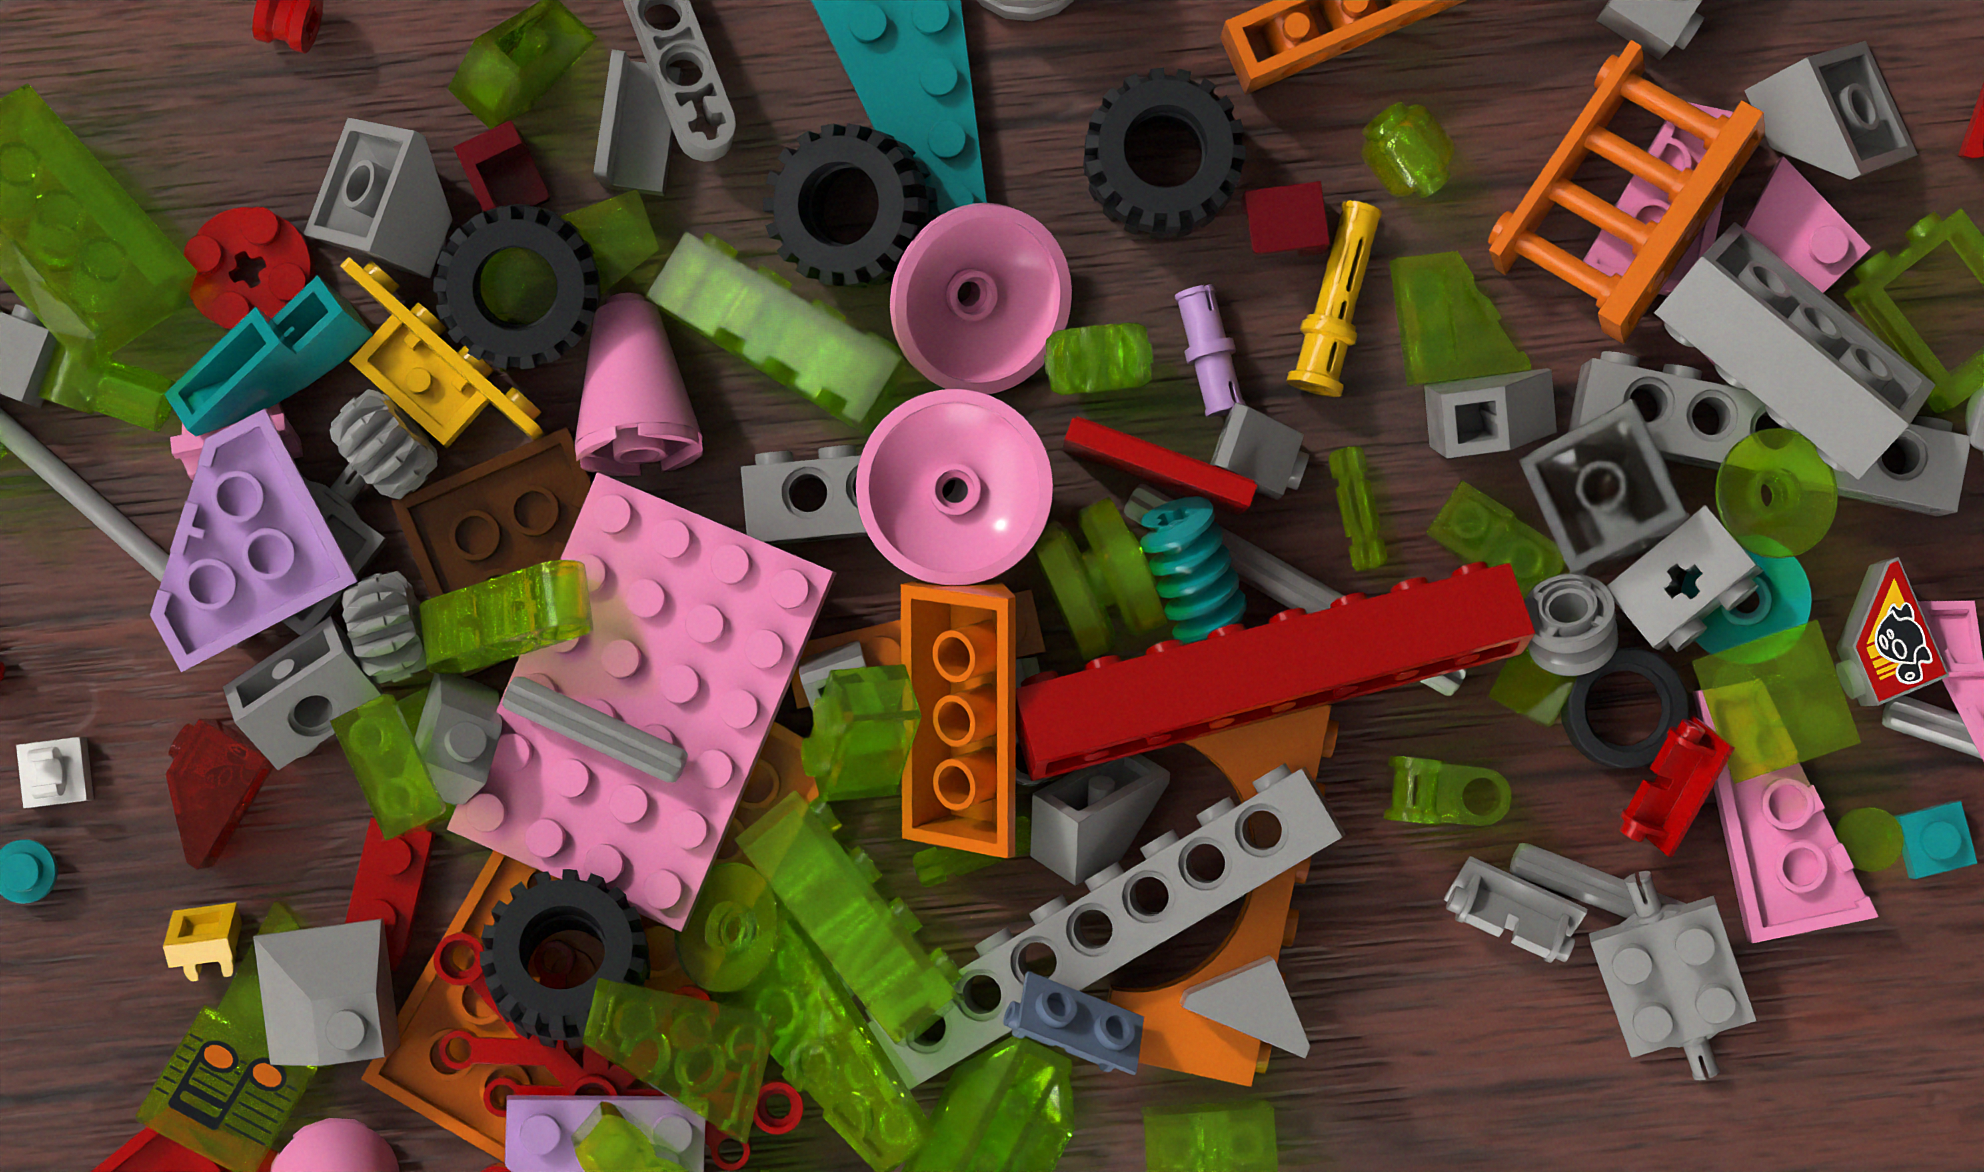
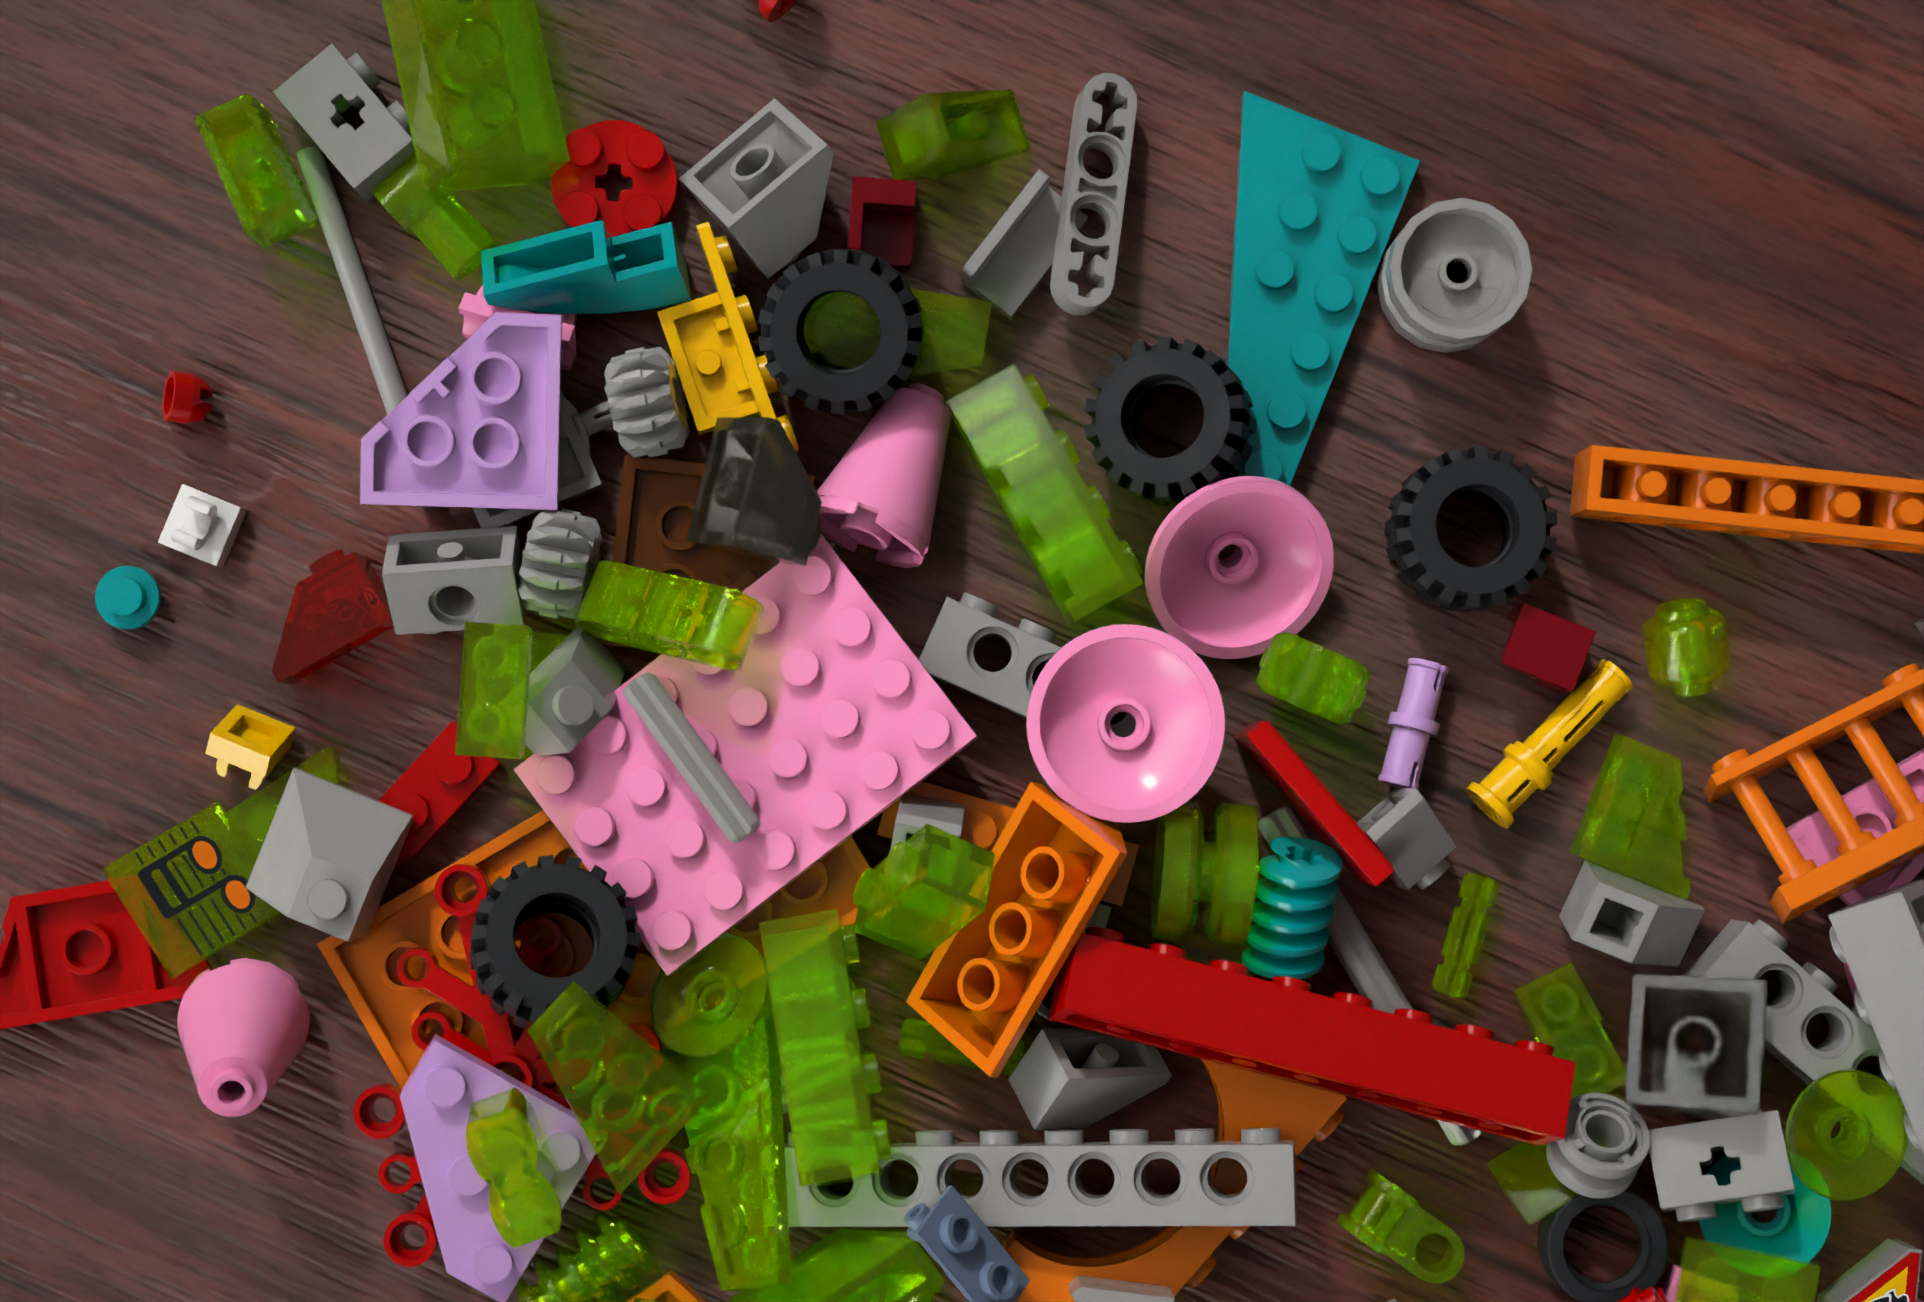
camera: 25 degrees right, 0 degrees up
(523, 470) = (756, 494): none -> clear smoke slope

